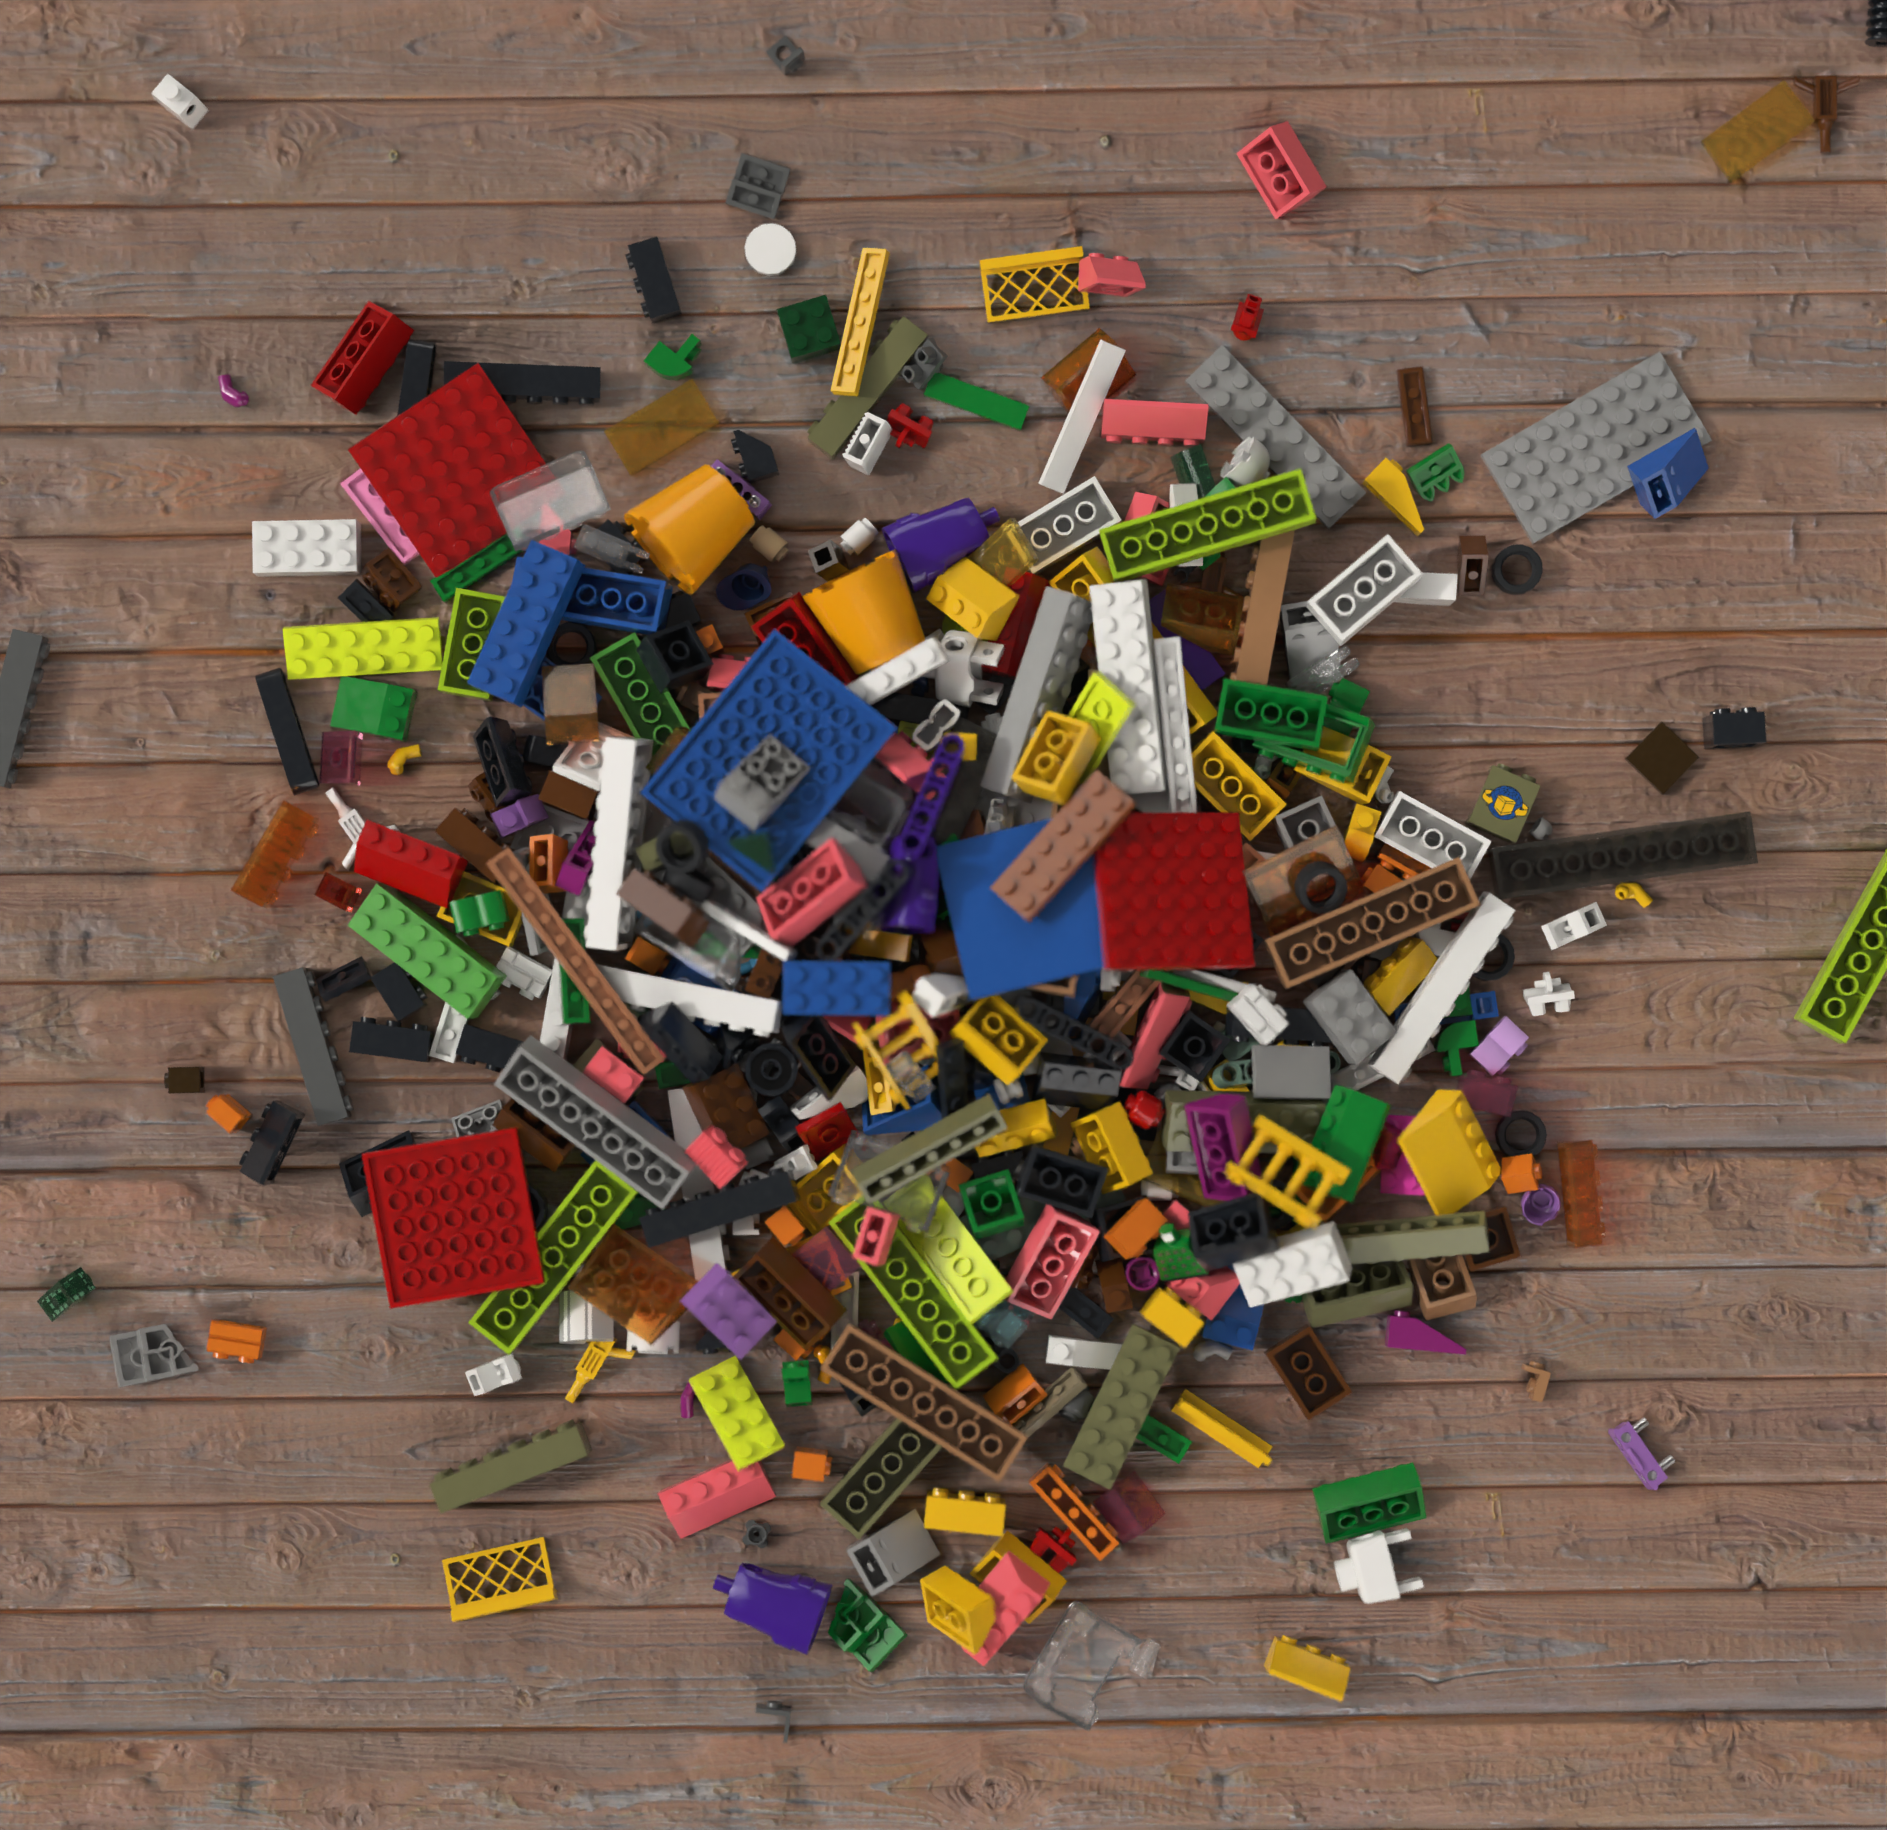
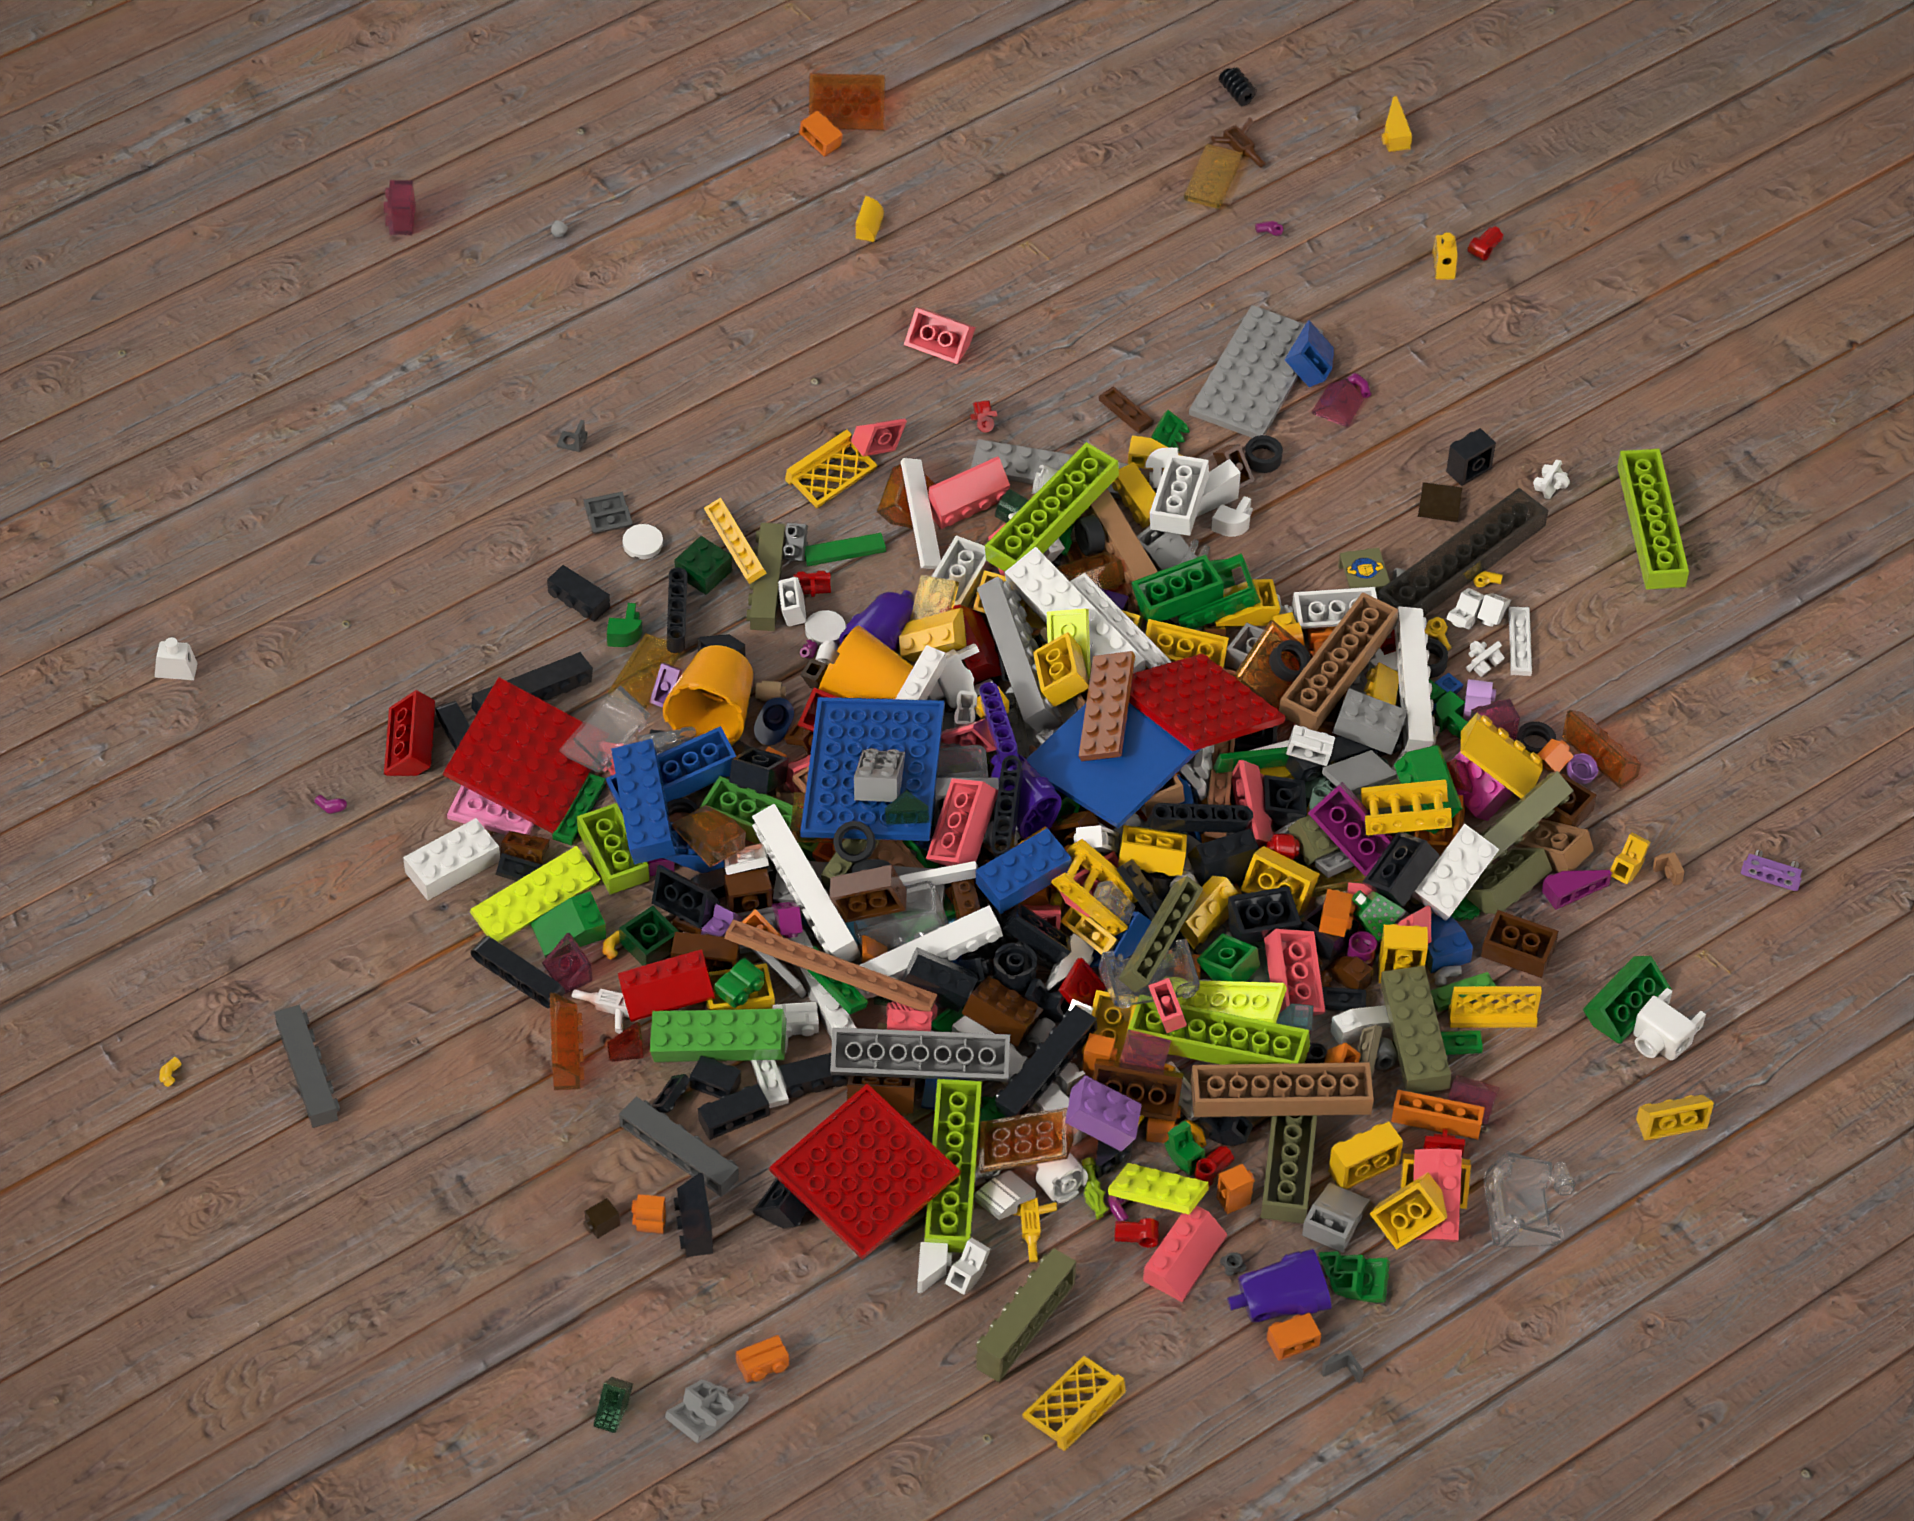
camera: 40 degrees left, 35 degrees down
(440, 781) = (648, 936): none -> dark green brick
(464, 1345) = (932, 1264): none -> white slope
(664, 468) = (665, 681): none -> medium lavender slope
(679, 1367) = (1093, 1193): none -> lime piece
(691, 1442) = (1143, 1232): none -> red piece
(716, 1156) = (1020, 1025): coral brick -> none
(745, 362) = (676, 610): none -> black beam
(753, 1653) = (1293, 1336): none -> orange brick
(818, 1415) = (1213, 1164): none -> red piece
(846, 518) = (809, 649): none -> magenta arm
(885, 494) = (824, 626): none -> white tile
(1213, 1380) = (1443, 995): none -> bright green plate
(1237, 571) = (1089, 535): none -> black tyre
(1333, 540) = (1135, 493): none -> yellow brick
(1388, 516) = (1157, 461): none -> white brick
(1413, 640) = (1231, 521): none -> white brick
(1498, 1347) = (1631, 859): none -> yellow brick
(1527, 925) = (1437, 629): none -> yellow piece
(1606, 994) = (1520, 641): none -> white tile
(1608, 939) = (1493, 609): none -> white slope
(1653, 551) = (1339, 402): none -> clear pink slope
(1699, 539) = (1362, 383): none -> magenta arm
(1766, 250) = (1271, 227): none -> magenta arm
(1807, 815) = (1552, 479): none -> white hips

